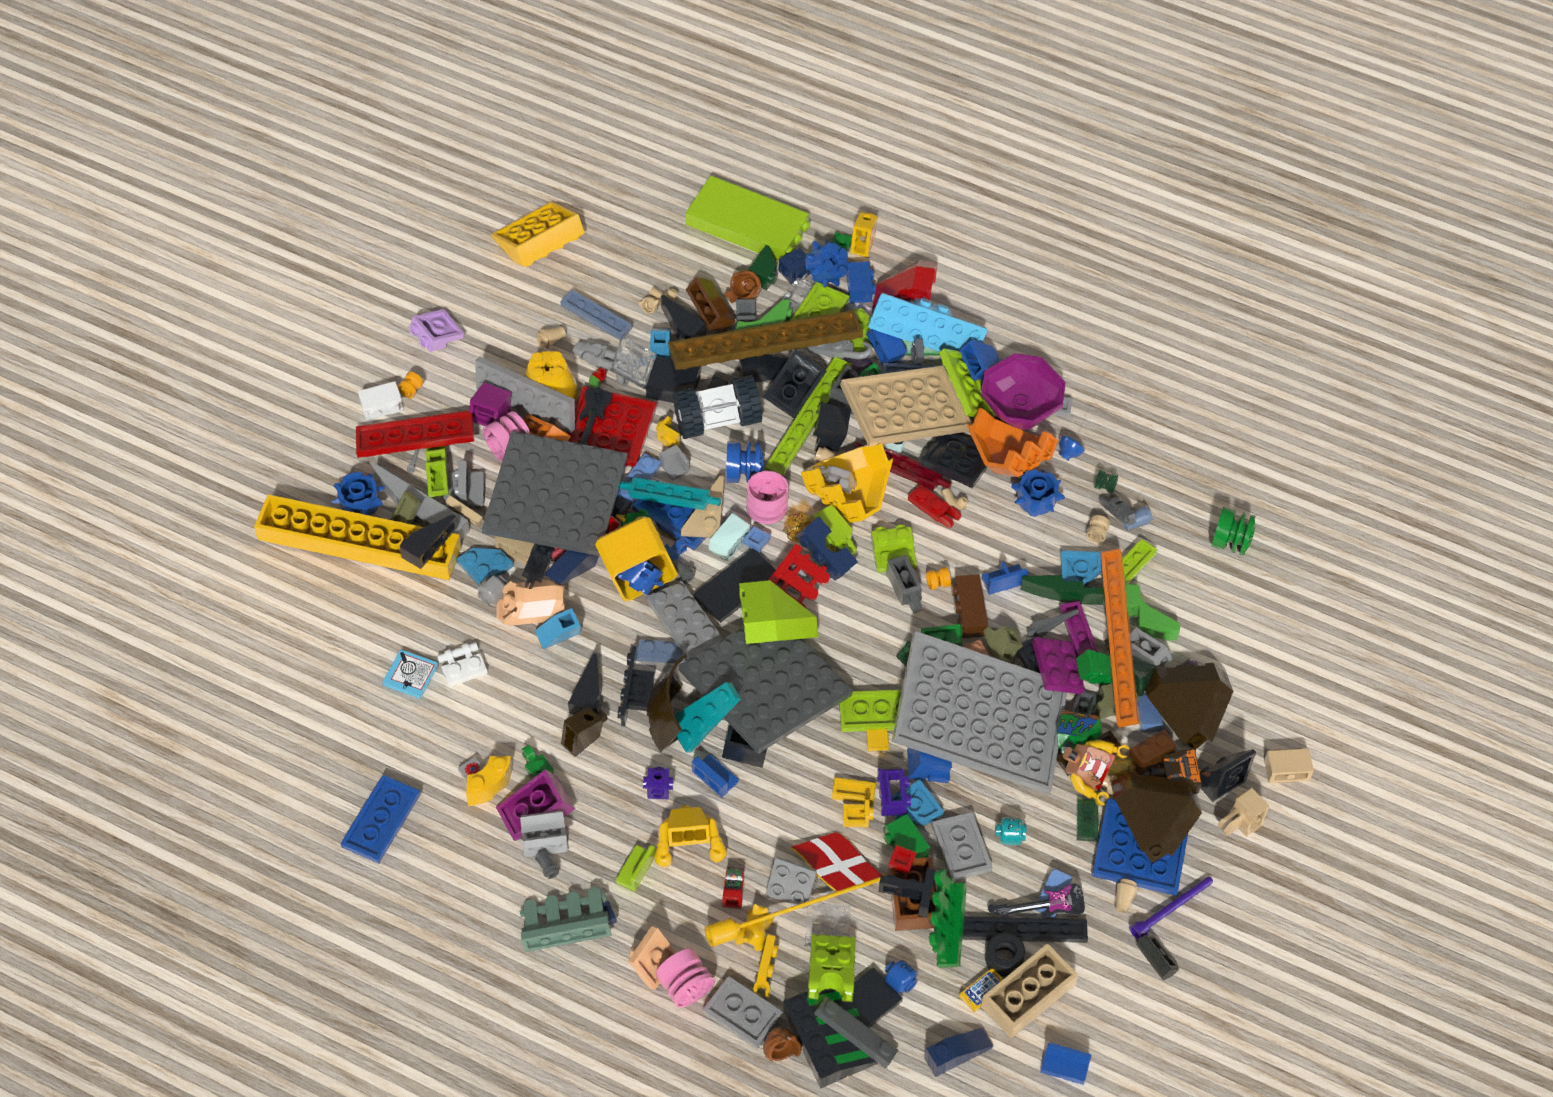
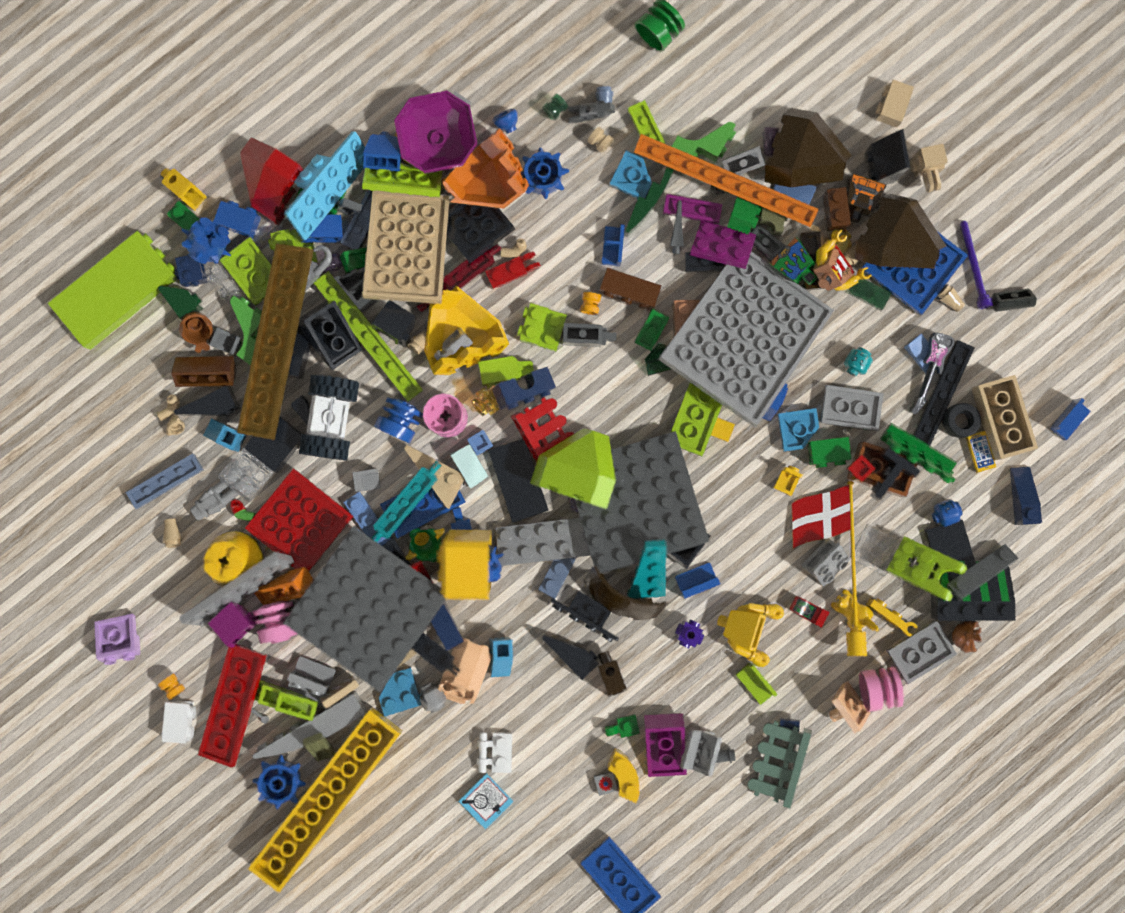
camera: 70 degrees left, 30 degrees up
(426, 541) = (370, 748): black slope -> none
(539, 233) = (41, 496): yellow slope -> none
(596, 402) = (270, 523): black piece -> none
(666, 434) = (336, 474): yellow bracket -> none
(683, 571) = (483, 521): dark grey pin -> none
(853, 790) = (760, 471): yellow tile -> none
(890, 807) = (782, 449): dark purple window -> none
(1003, 642) = (681, 281): olive brick -> none
(1142, 675) = (767, 178): clear green slope -> none

